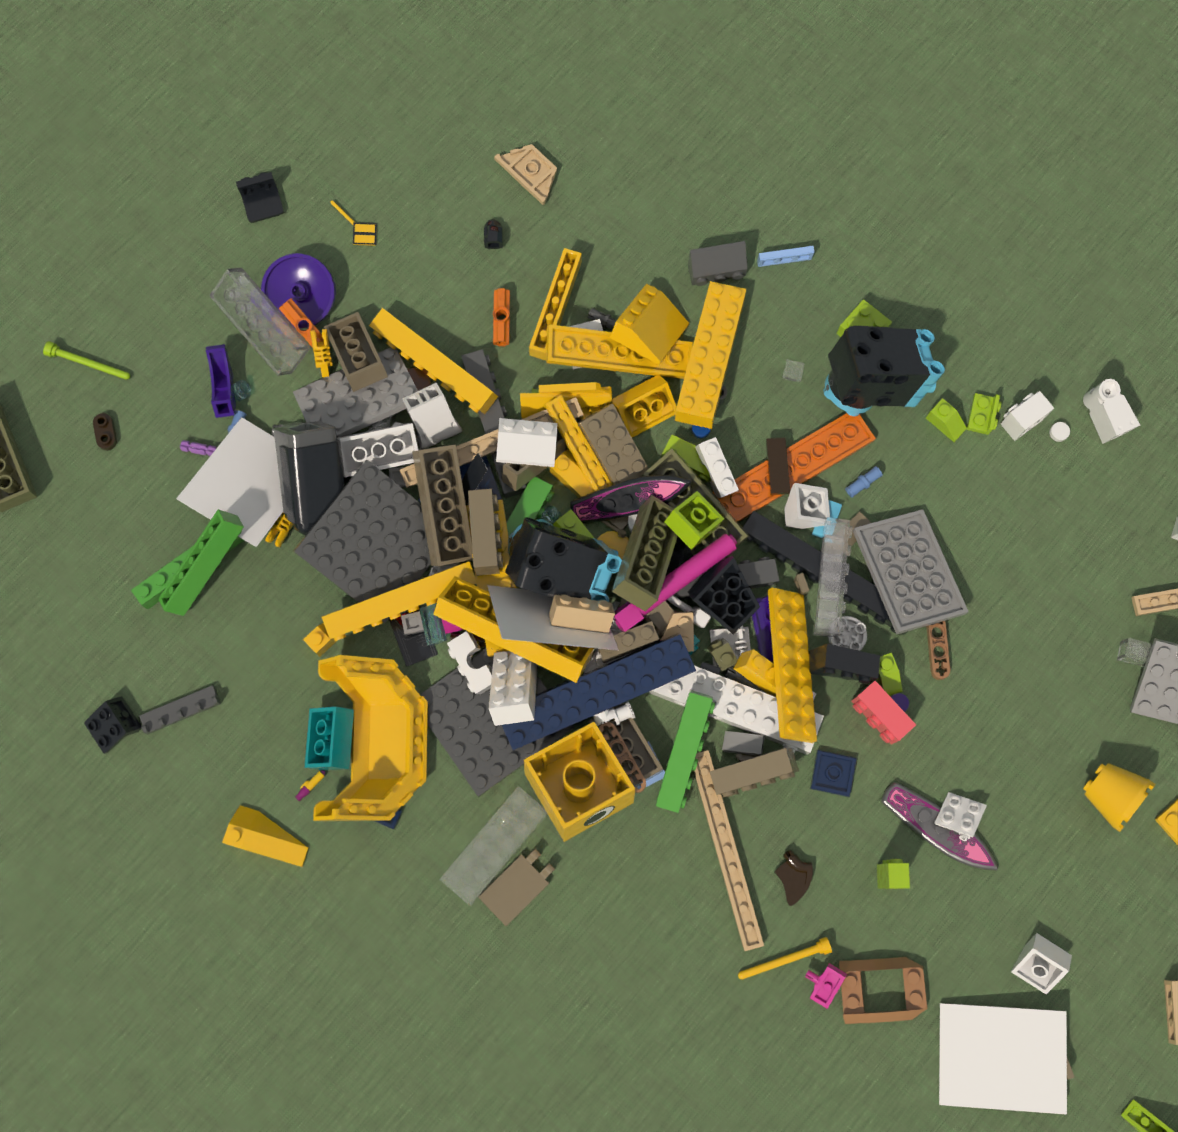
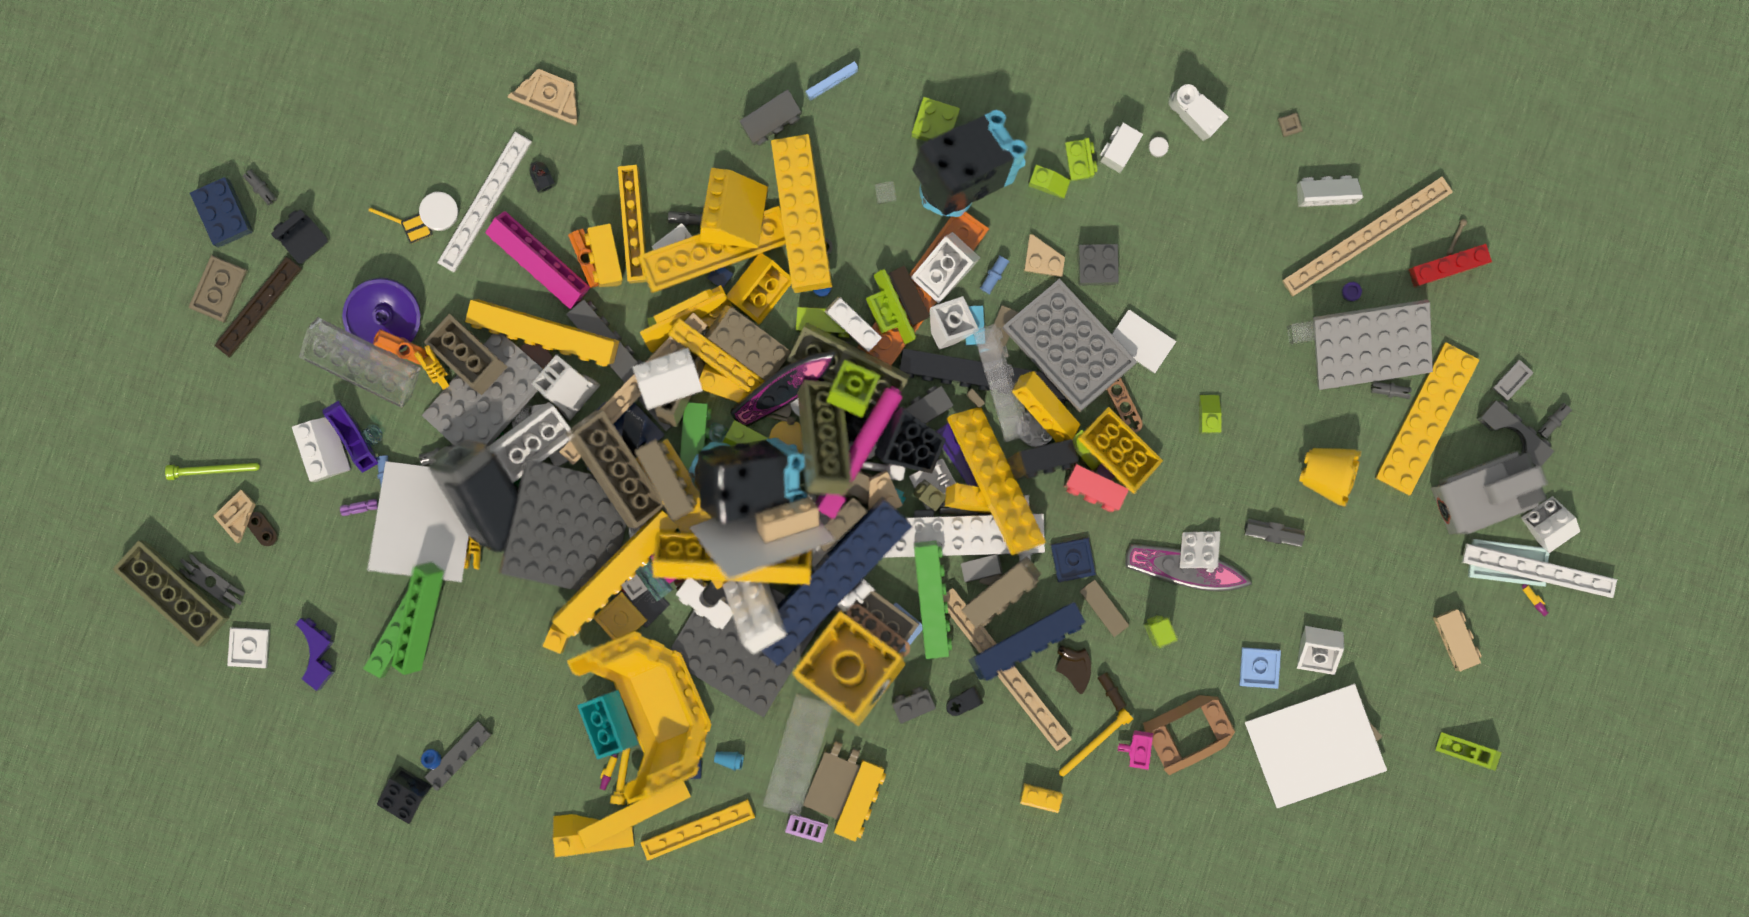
camera: 25 degrees left, 10 degrees up
(40, 530) = (248, 647): none -> white tile
(41, 467) = (221, 586): none -> dark grey piece
(87, 408) = (236, 515): none -> tan wing
(104, 551) = (319, 642): none -> dark purple arch
(153, 701) = (431, 759): none -> blue tile
(169, 214) = (218, 289): none -> dark tan tile
(189, 383) = (320, 449): none -> white slope
(196, 243) = (258, 307): none -> dark brown tile
(203, 151) = (221, 212): none -> dark blue brick
(246, 145) = (259, 187): none -> dark grey pin
(308, 812) = (618, 796): none -> yellow piece
(314, 834) = (633, 814): none -> yellow tile
(368, 877) = (697, 829): none -> yellow tile
(387, 644) = (620, 617): none -> yellow tile
(390, 226) = (438, 211): none -> white tile
(429, 823) = (731, 760): none -> dark azure cone
(433, 236) = (484, 202): none -> white tile
(457, 300) = (537, 259): none -> dark pink brick
(459, 909) = (790, 830): none -> lavender slope
(517, 318) = (603, 256): none -> yellow slope
(533, 916) = (859, 801): none -> yellow brick
(614, 380) = (720, 277): none -> dark blue tile
(625, 845) = (913, 704): none -> dark grey bracket
(678, 864) = (968, 700): none -> black piece
(711, 991) = (1041, 798): none -> yellow brick
(754, 469) = (888, 310): none -> lime bracket
(759, 829) = (1023, 643): none -> dark blue brick
(821, 915) = (1112, 691): none -> dark brown pin
(822, 454) = (945, 267): none -> white slope
(845, 832) = (1104, 608): none -> dark tan tile
(865, 616) = (1045, 407): none -> yellow brick
(914, 486) = (1043, 258): none -> tan wing
(922, 685) = (1120, 450): none -> yellow slope
(964, 511) = (1098, 264): none -> dark grey brick
(974, 955) = (1259, 667): none -> light blue tile
(981, 598) = (1143, 341): none -> white tile
(1017, 692) = (1209, 414): none -> lime slope
(1038, 829) = (1274, 532): none -> dark grey piece

